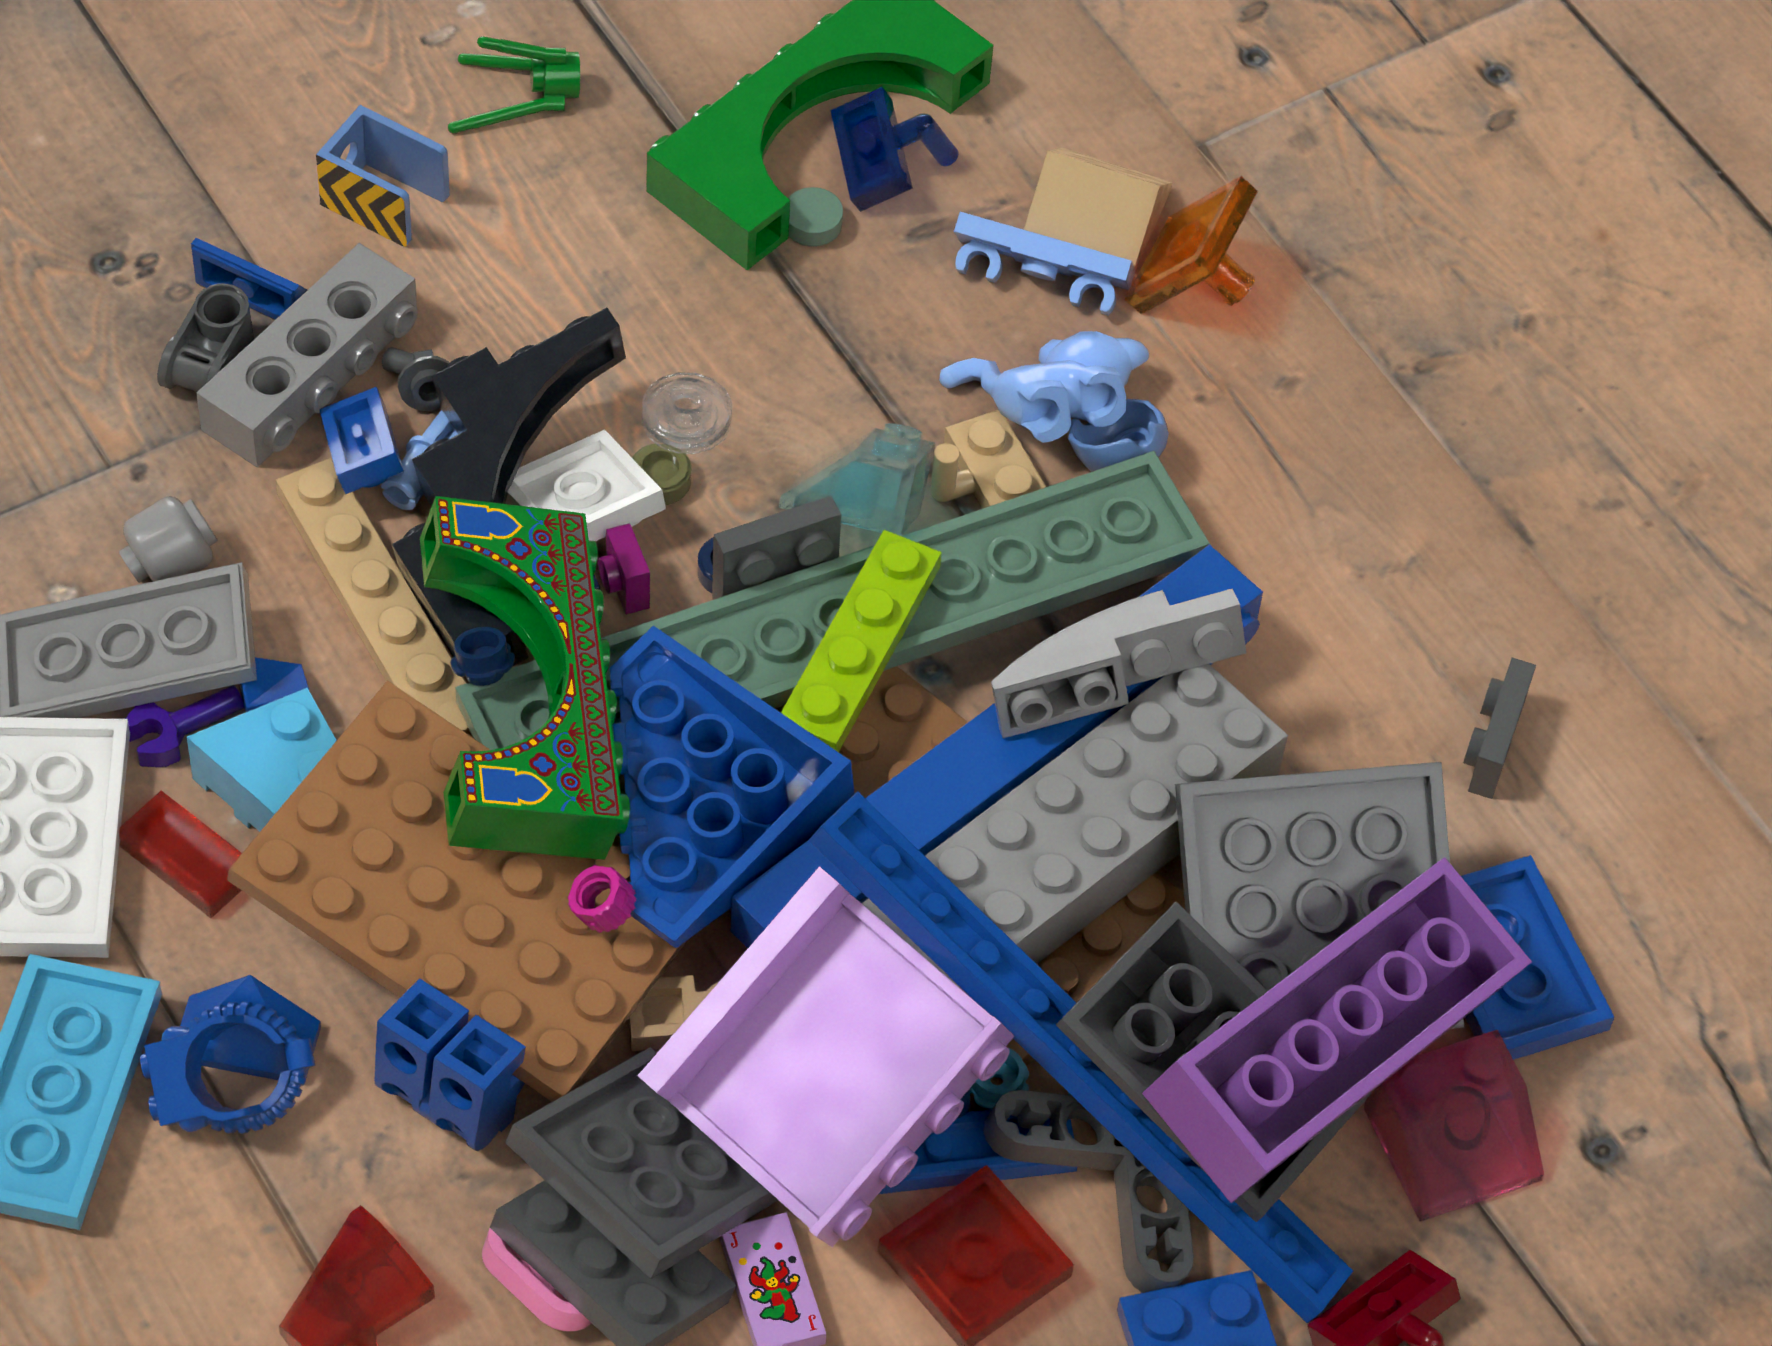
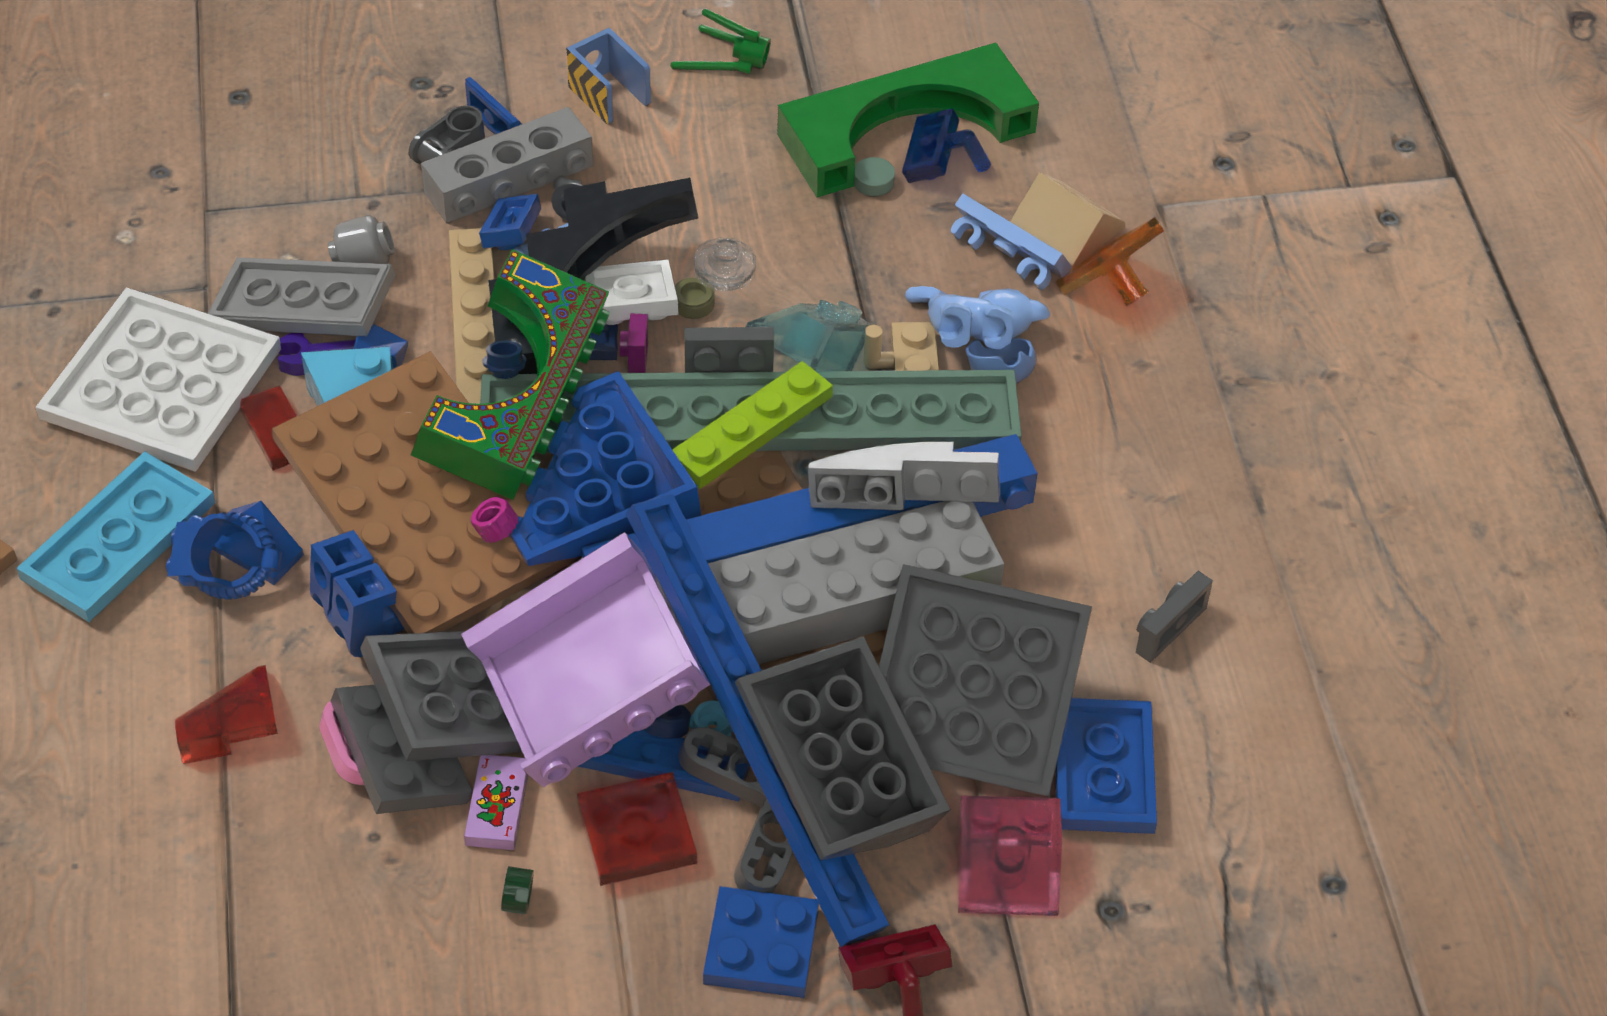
camera: 25 degrees right, 5 degrees down
(1335, 1029) = (930, 750): medium lavender brick -> none

